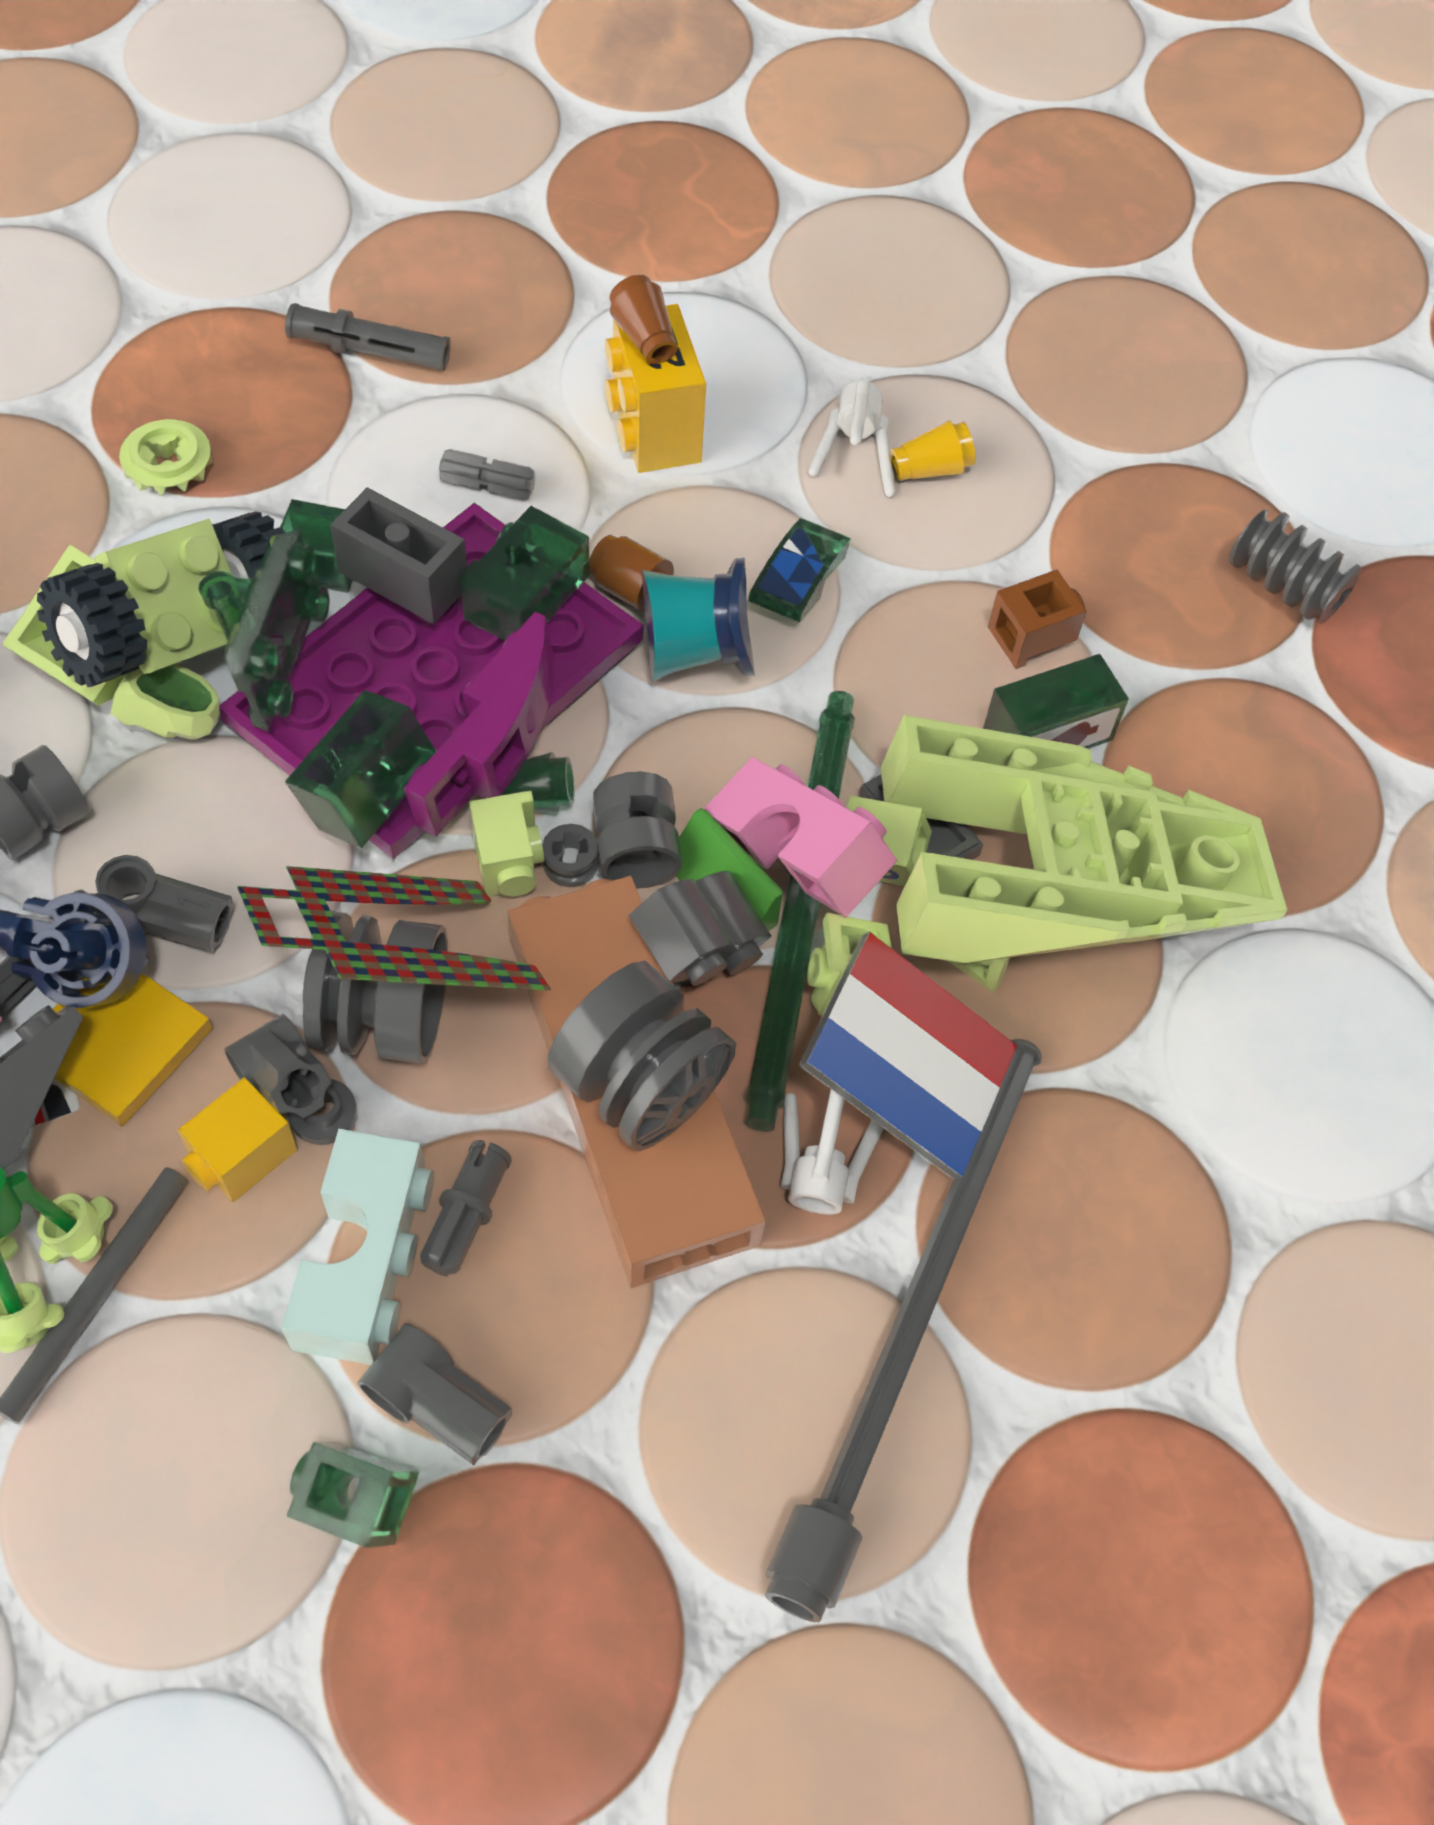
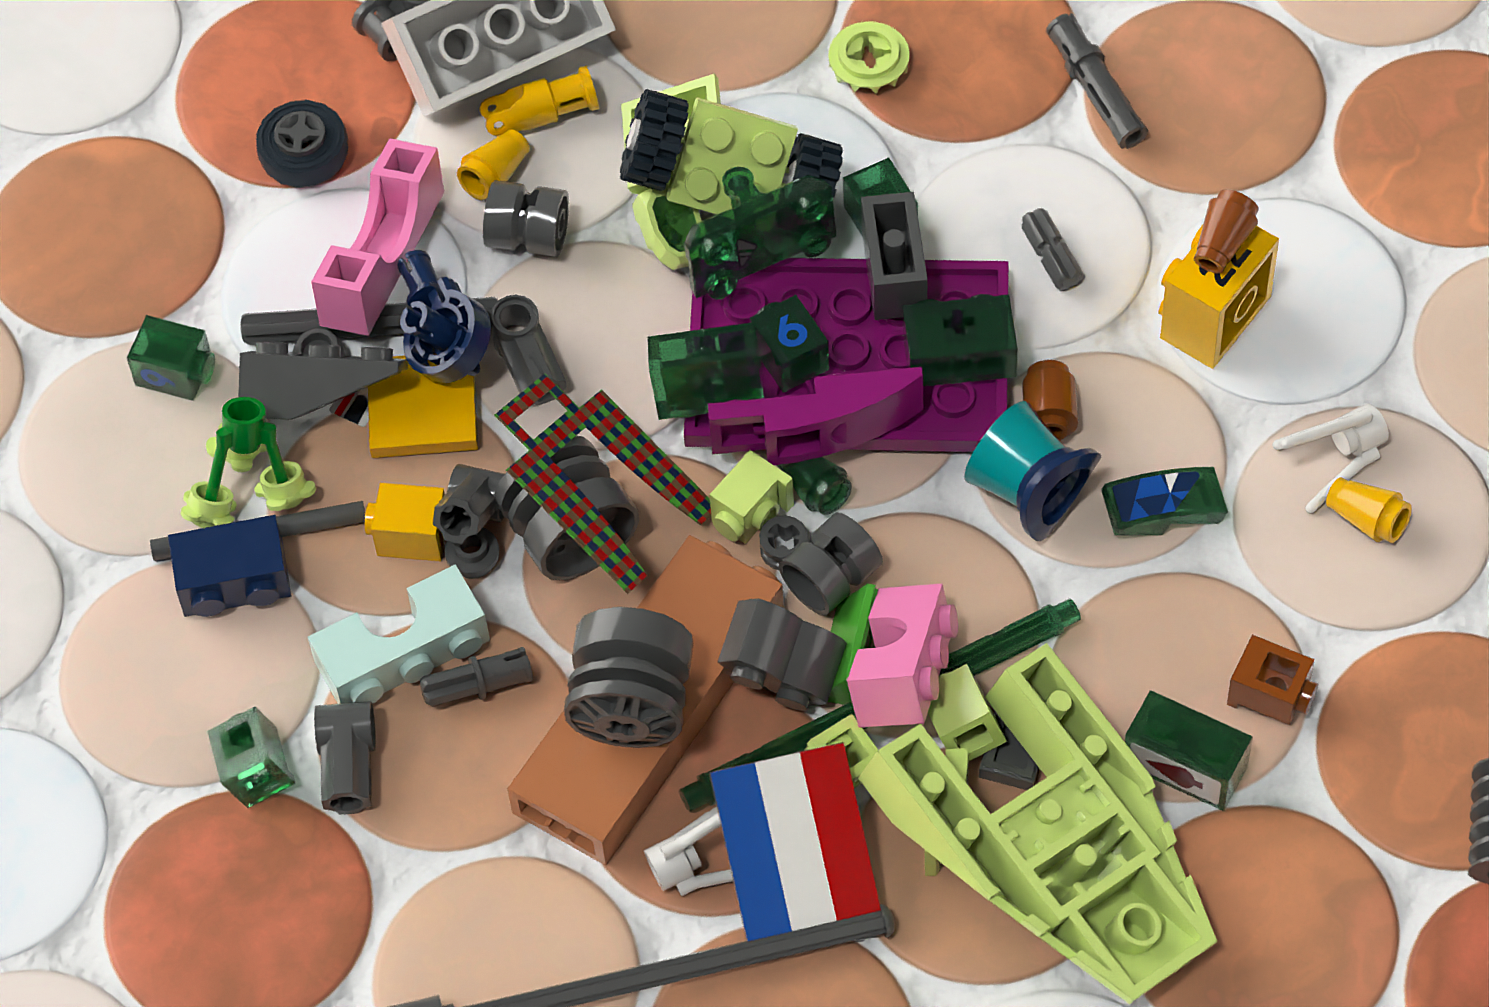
camera: 60 degrees right, 0 degrees up
(111, 1349) = (229, 566): none -> dark blue brick
(399, 677) = (790, 343): none -> clear green brick

